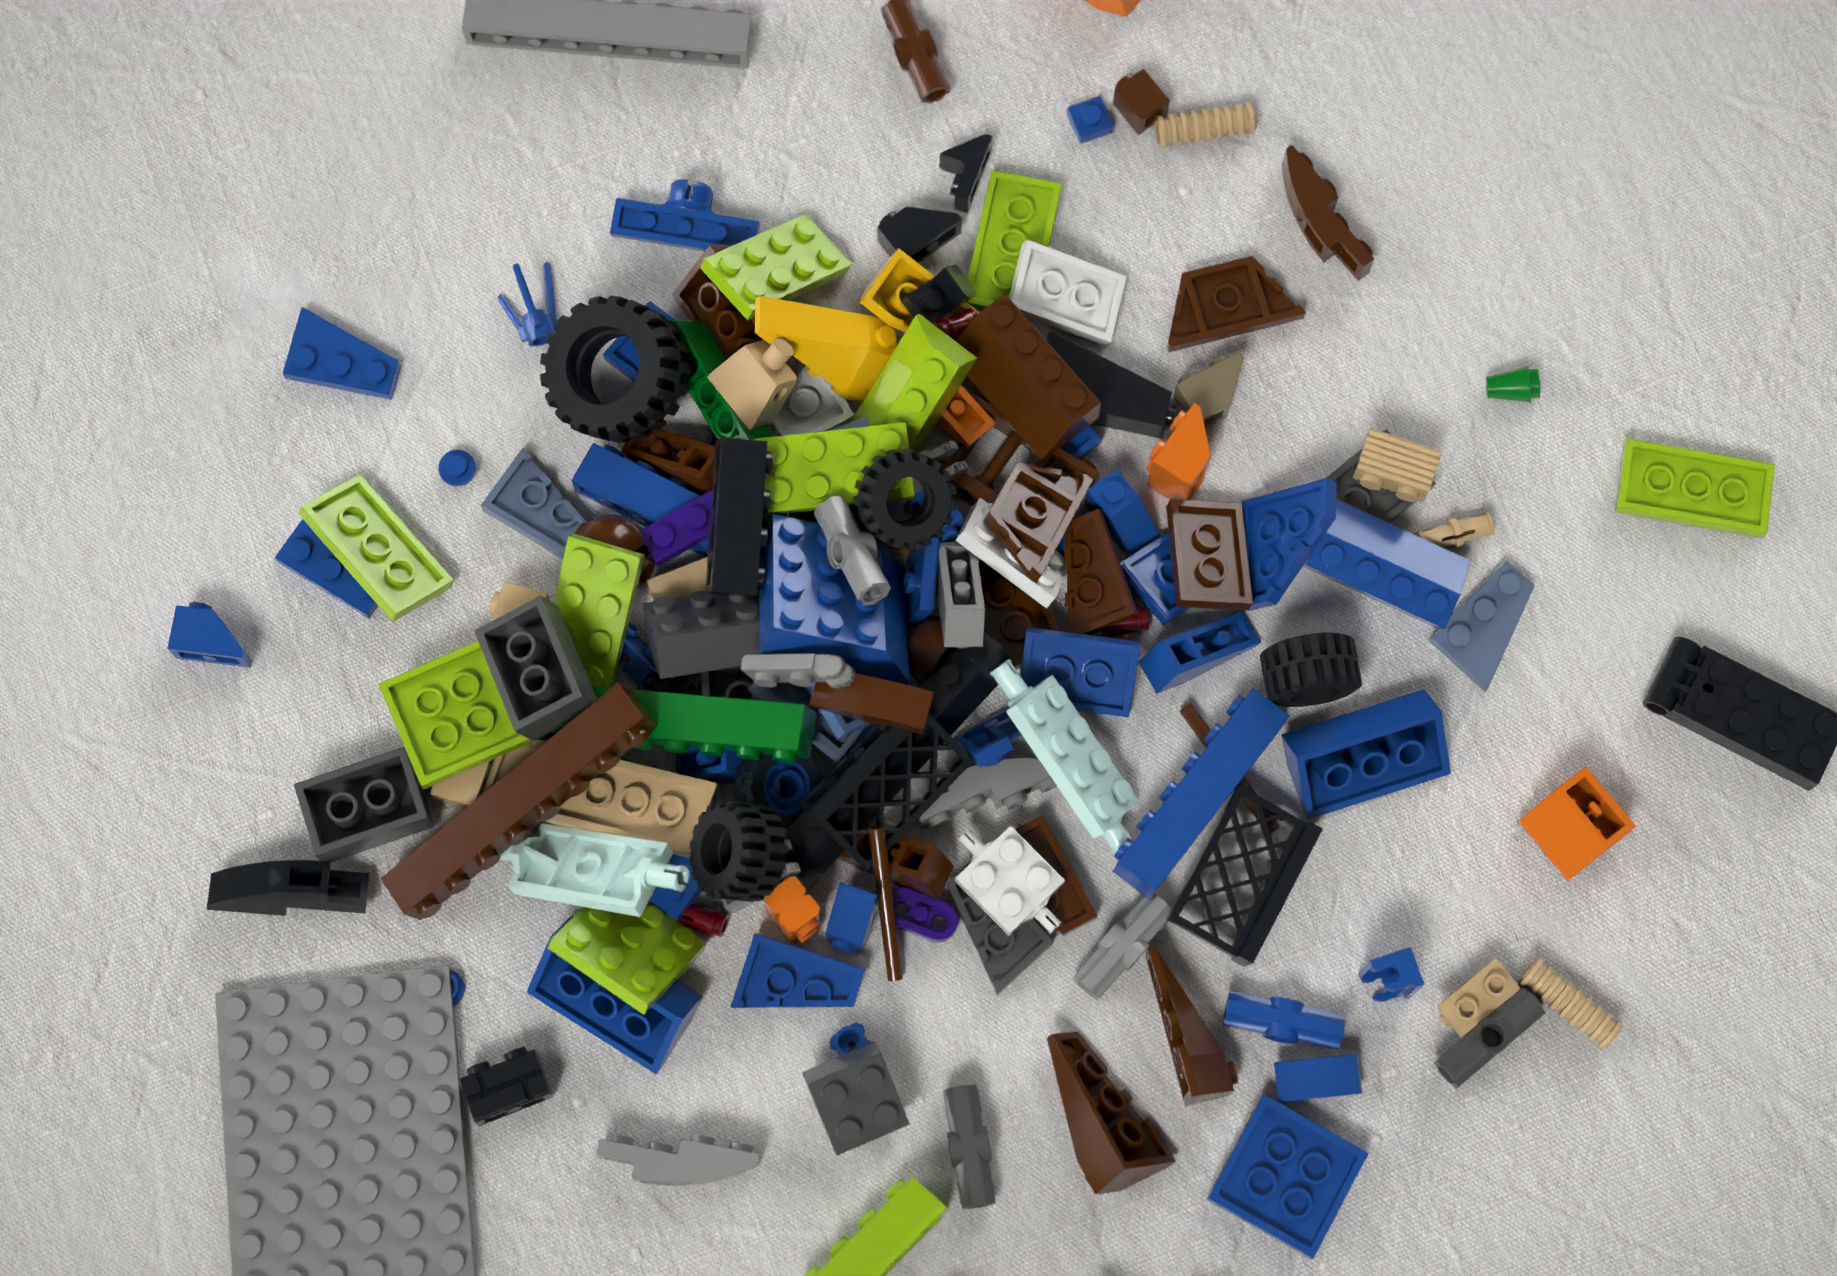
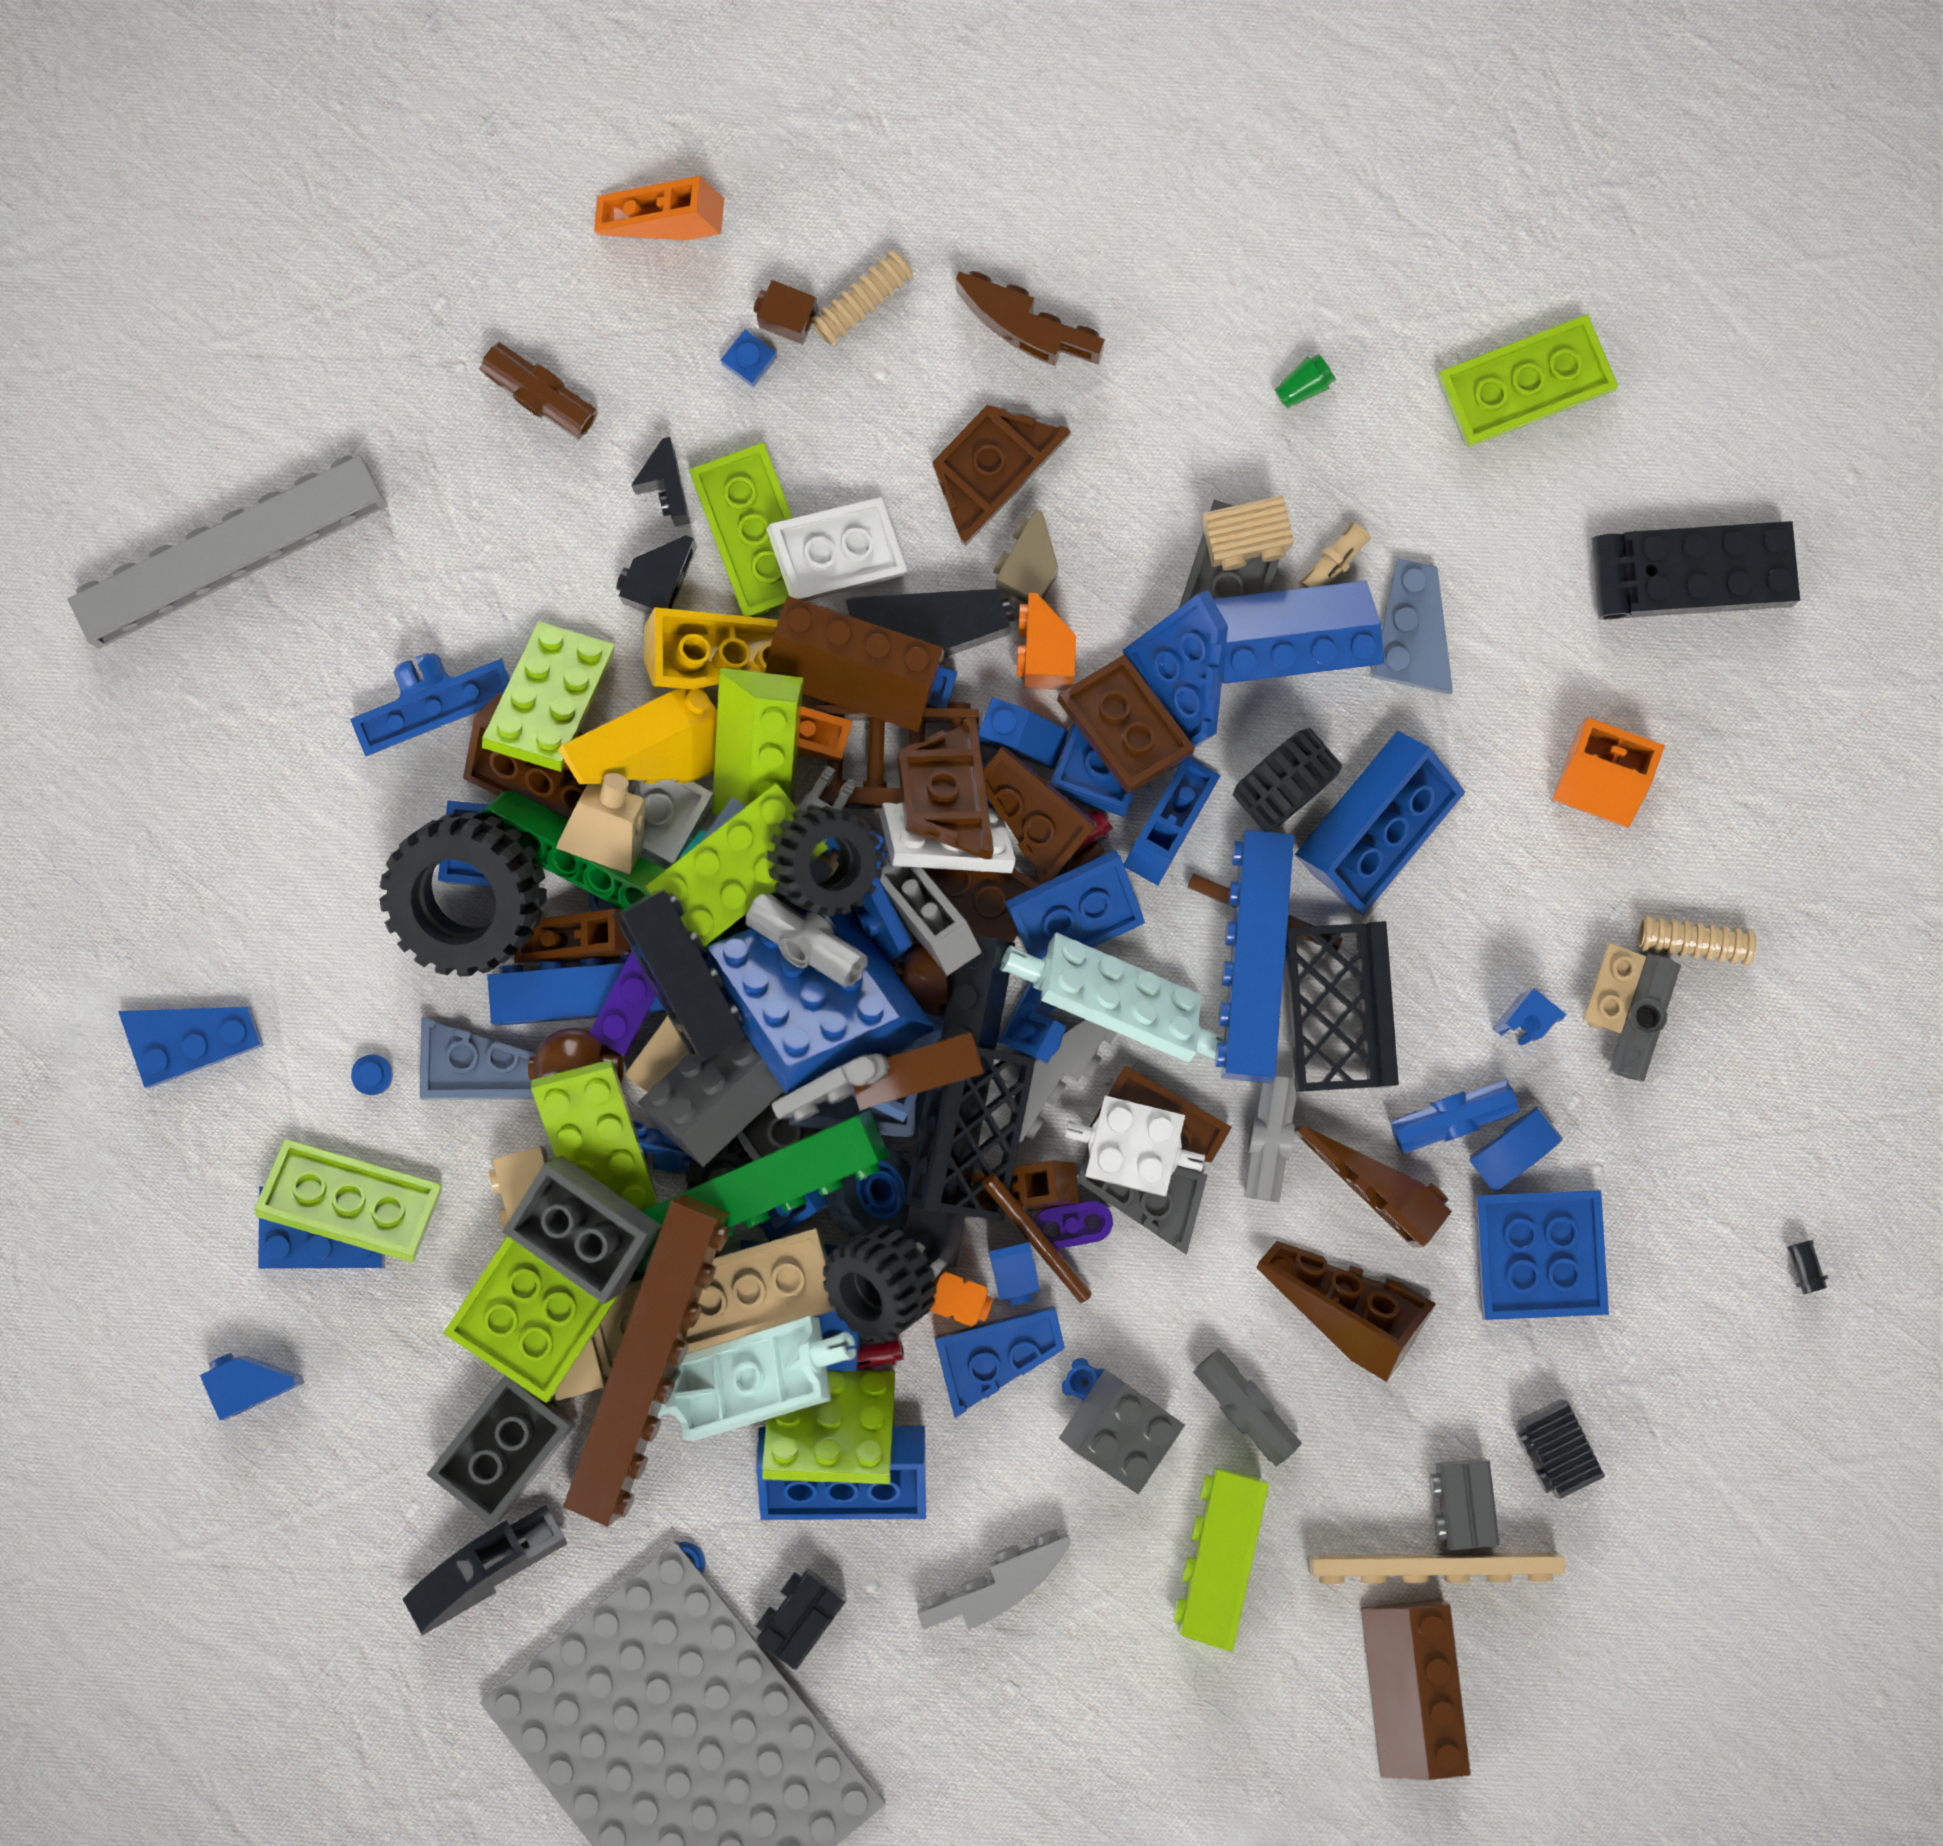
camera: 30 degrees left, 10 degrees up
(536, 322) = (356, 890): blue plant -> none
(940, 295) = (722, 630): black slope -> none
(956, 324) = (756, 650): dark red pin -> none

